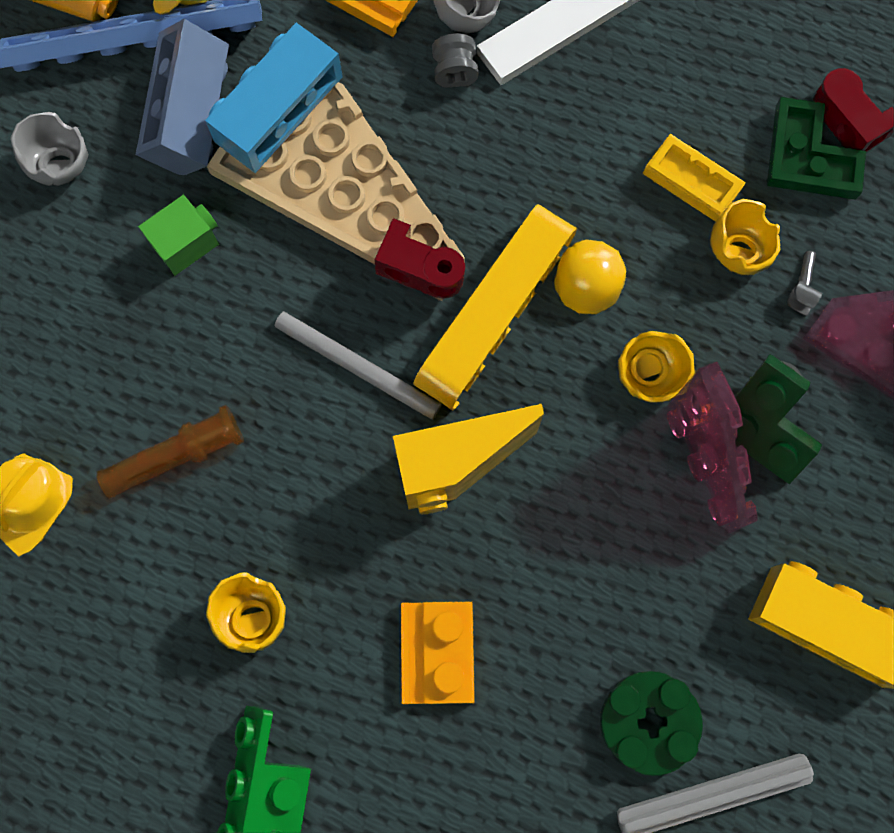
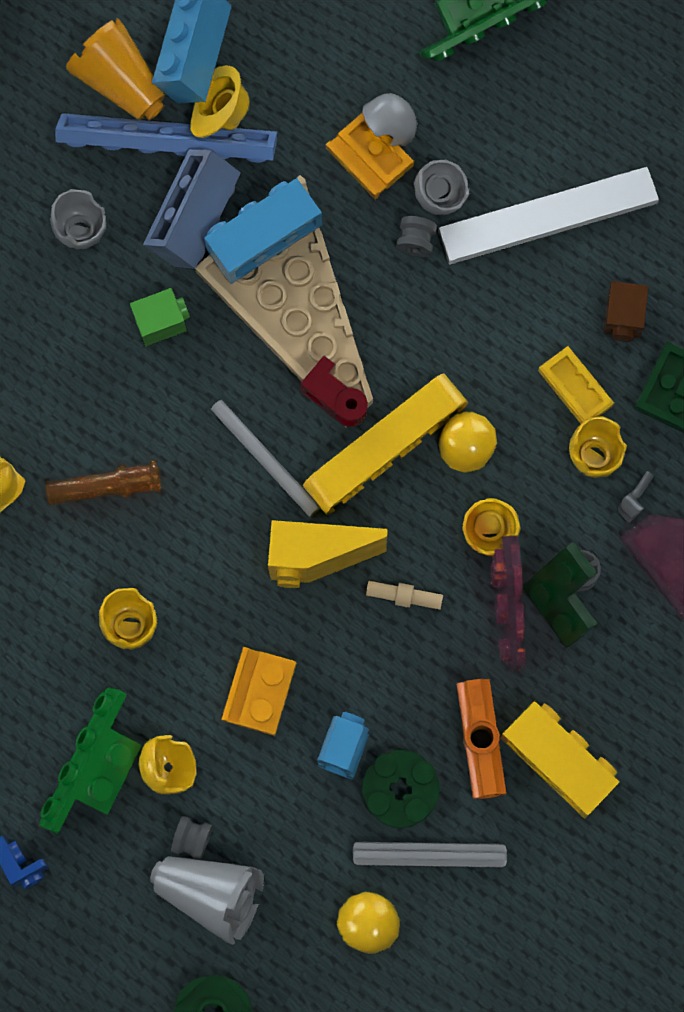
camera: 20 degrees right, 0 degrees up
(346, 807) = (161, 751): none -> yellow hair
(570, 694) = (343, 745): none -> dark azure brick
(576, 479) = (404, 595): none -> tan bar
(721, 76) = (625, 311): none -> reddish brown brick
(745, 659) = (483, 763): none -> orange piece

